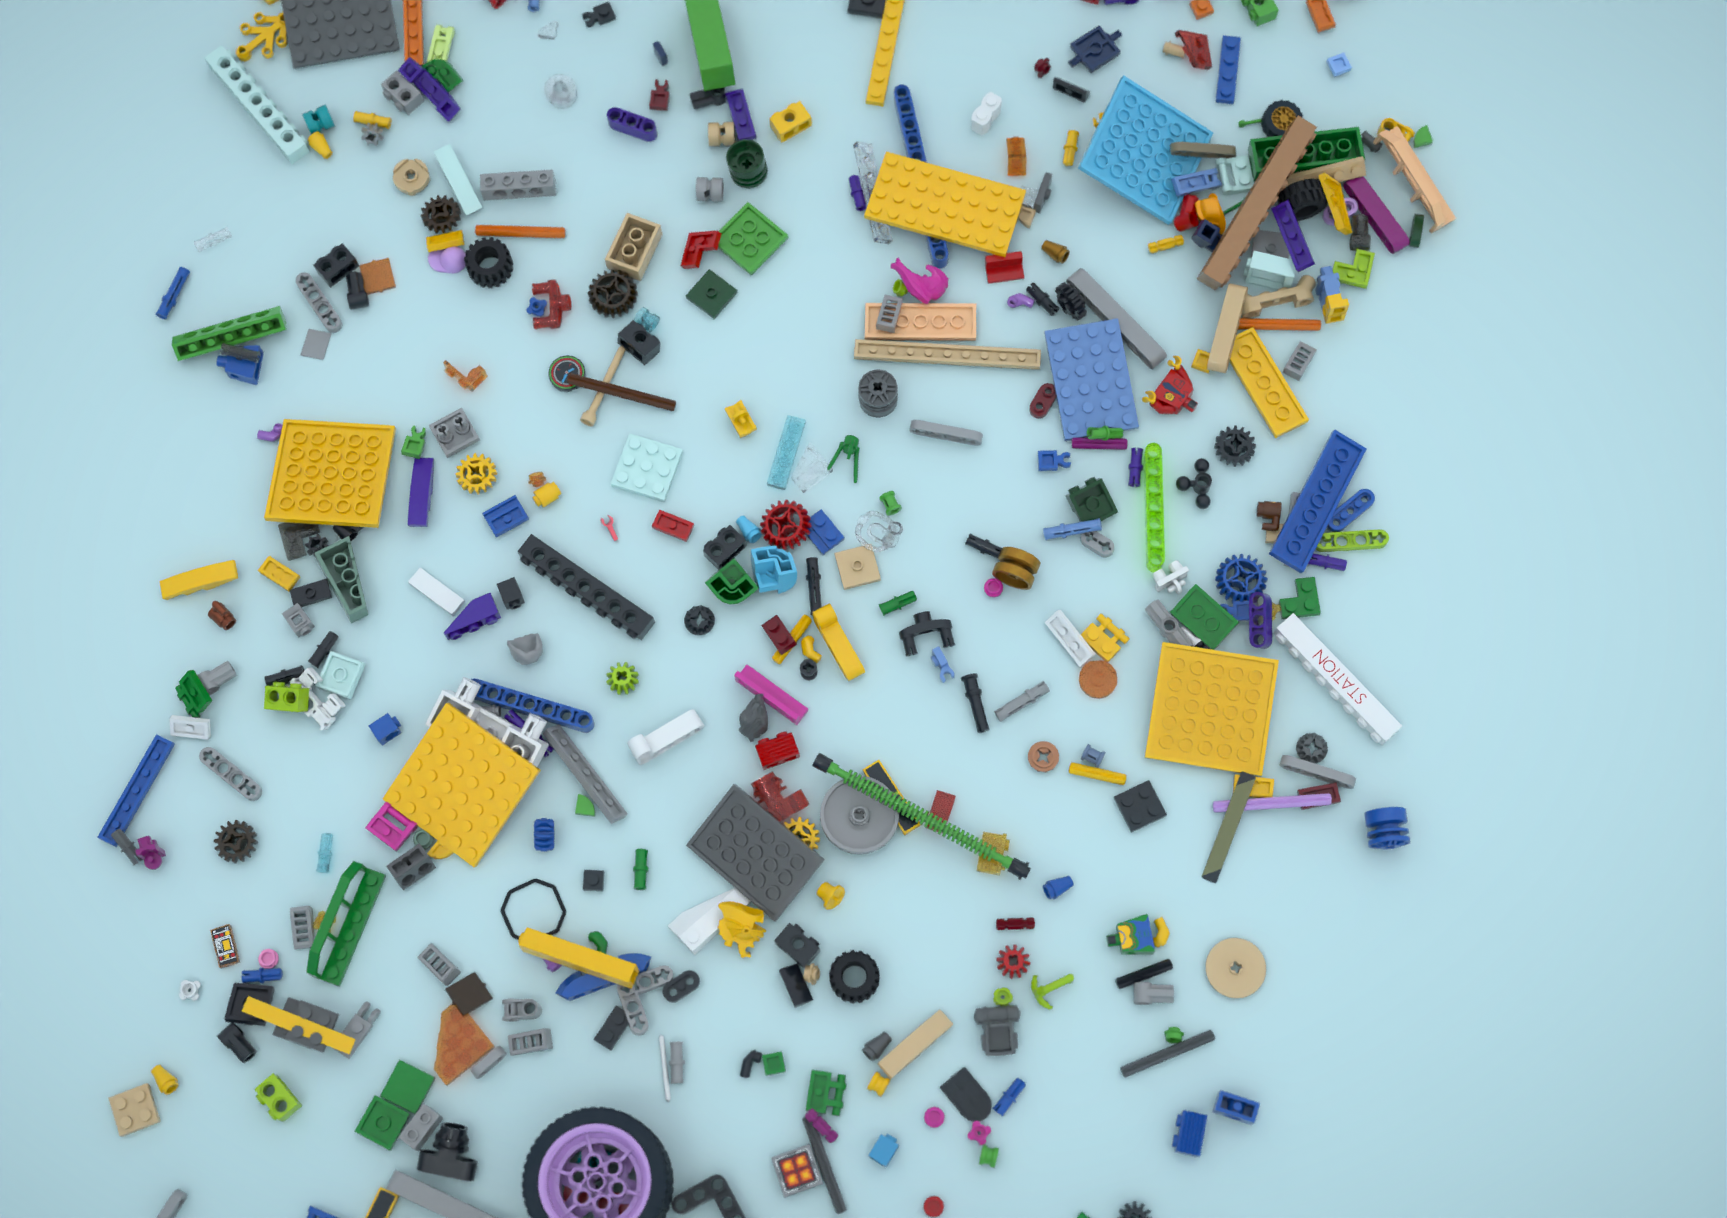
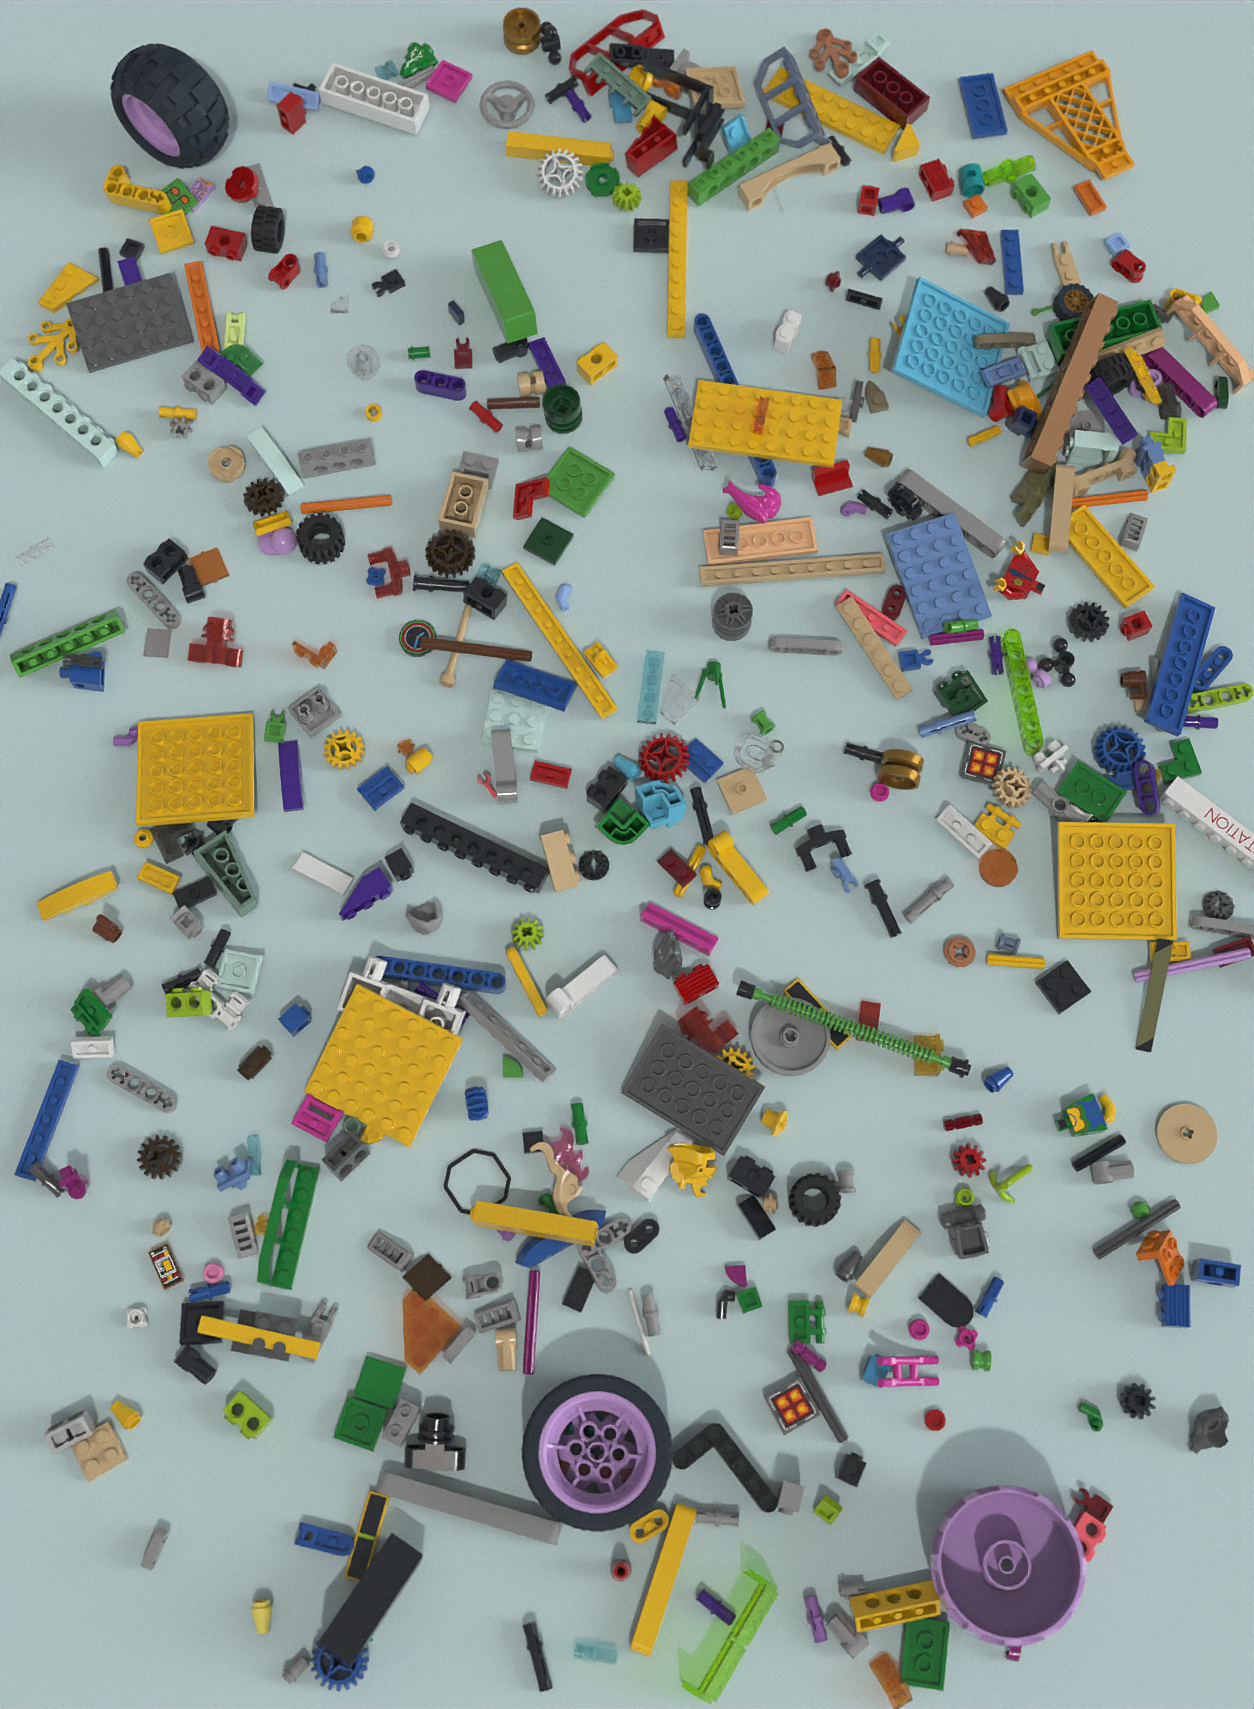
camera: 15 degrees left, 0 degrees up
(110, 1085) = (70, 1431): none -> light grey brick
(226, 908) = (161, 1227): none -> tan plate
(270, 538) = (147, 842): none -> yellow plate
(304, 870) = (235, 1176): none -> medium blue hips
(321, 114) = (123, 419): teal wheel -> none
(340, 764) = (254, 1062): none -> dark brown head
(369, 359) = (215, 651): none -> clear red beam
(533, 1067) = (505, 1343): none -> tan piece
(561, 1052) = (531, 1322): none -> magenta axle
(565, 148) = (373, 407): none -> yellow bush
(589, 321) = (432, 584): none -> black pin
(613, 724) = (526, 981): none -> yellow beam
(616, 88) = (418, 352): none -> green pin
(620, 909) = (565, 1167): none -> piece
(628, 511) = (504, 766): none -> light grey beam
(656, 209) = (479, 465): none -> light grey plate
(665, 610) = (559, 860): none -> tan wedge
(671, 161) = (486, 416): none -> red pin
(672, 435) = (535, 685): none -> blue plate
(702, 151) = (513, 403): none -> reddish brown axle
(704, 394) = (559, 641): none -> yellow plate
(714, 350) = (561, 595): none -> light blue arm
(767, 1037) = (737, 1274): none -> magenta tile
(889, 964) = (846, 1181): none -> light grey bush
(921, 1146) = (913, 1362): none -> dark pink piece
(939, 196) = (761, 416): none -> clear orange piece
(1014, 444) = (874, 648): none -> tan plate
(1017, 413) = (880, 623): none -> coral plate
(1063, 191) = (875, 398): none -> dark tan plate
(1101, 574) = (982, 763): none -> tile
(1118, 604) = (1012, 787): none -> tan gear
(1175, 495) = (1040, 677): none -> lavender plate
(1189, 1080) = (1163, 1247): none -> orange bracket
(1202, 309) = (1032, 493): none -> olive bracket
(1206, 106) = (998, 300): none -> black cone
(1282, 80) = (1064, 264): none -> tan hinge
(1287, 451) = (1140, 620): none -> red brick
(1346, 89) = (1129, 264): none -> red piece

